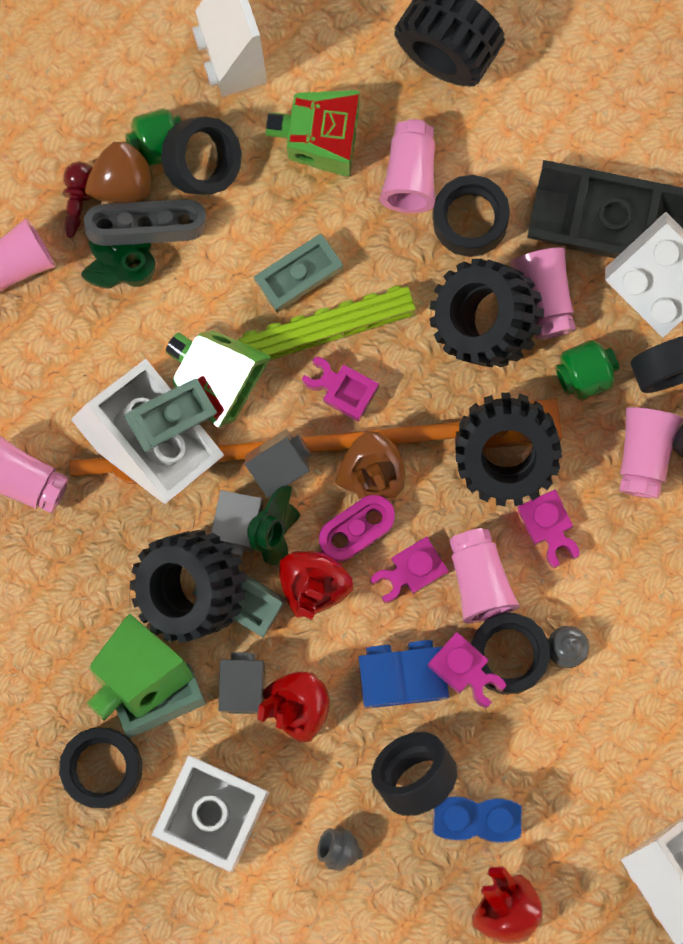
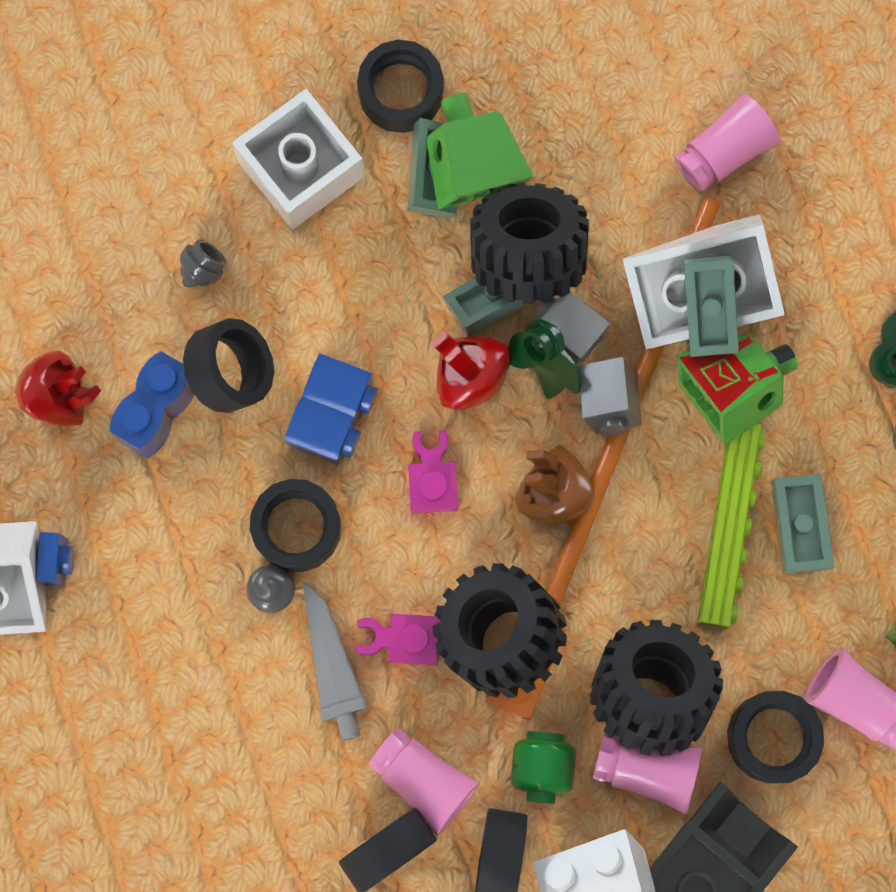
camera: 110 degrees right, 0 degrees up
(241, 684) = (406, 252): dark grey brick -> none
(297, 704) = (358, 291): red piece -> none
(346, 391) = (651, 507): dark pink plate -> none
(355, 527) = (503, 444): dark pink plate -> none
(461, 666) = (305, 463): dark pink plate -> none
(481, 577) = (387, 538): bright pink plant -> none
(609, 559) = (336, 681): none -> light grey bar
(641, 828) = (54, 559): none -> blue plate

